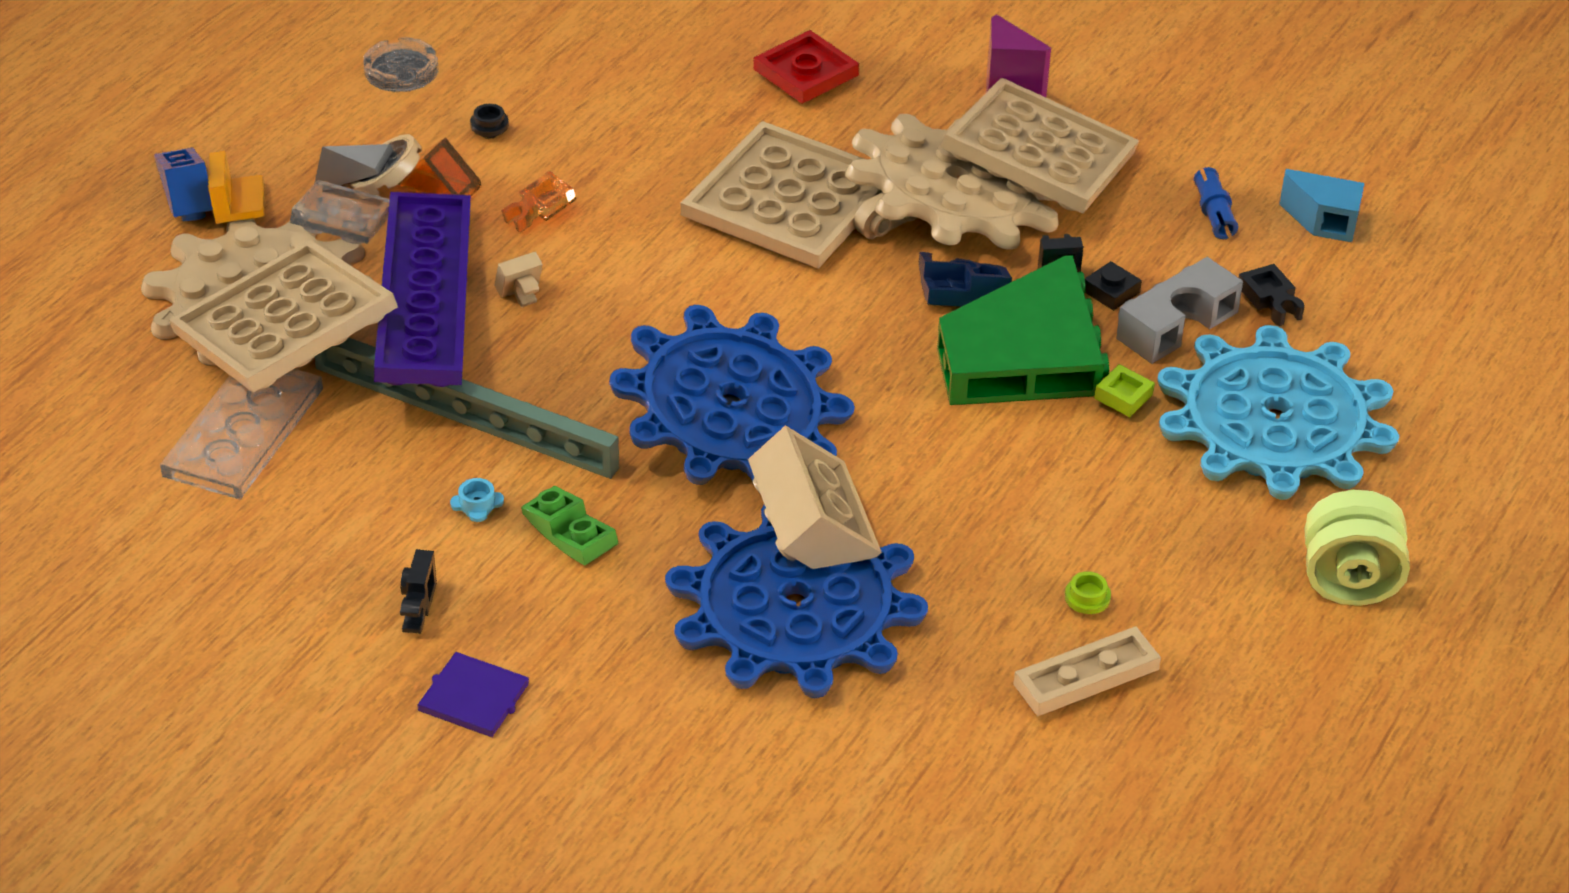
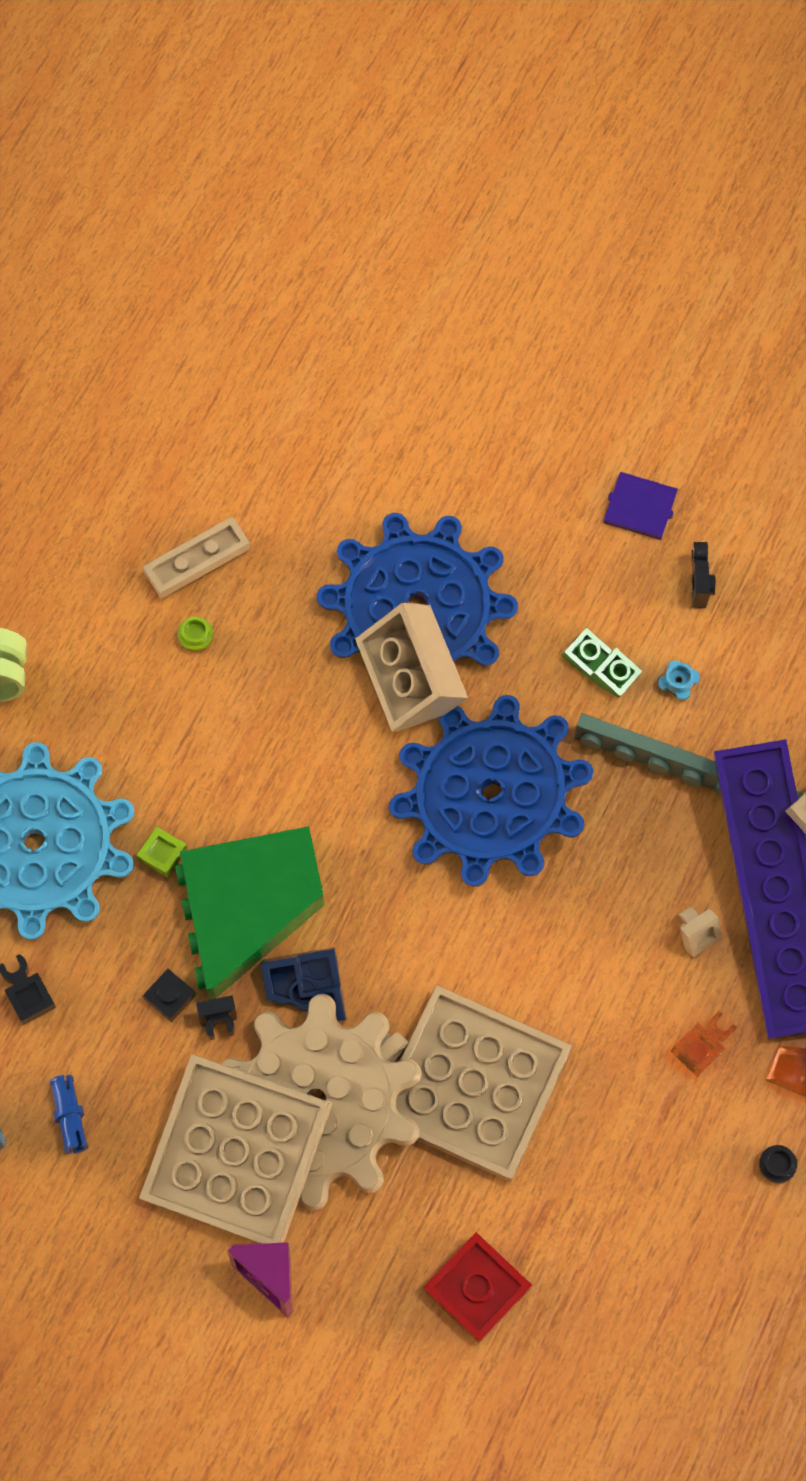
camera: 175 degrees right, 25 degrees up
(1156, 319) = (91, 979): light grey arch -> none

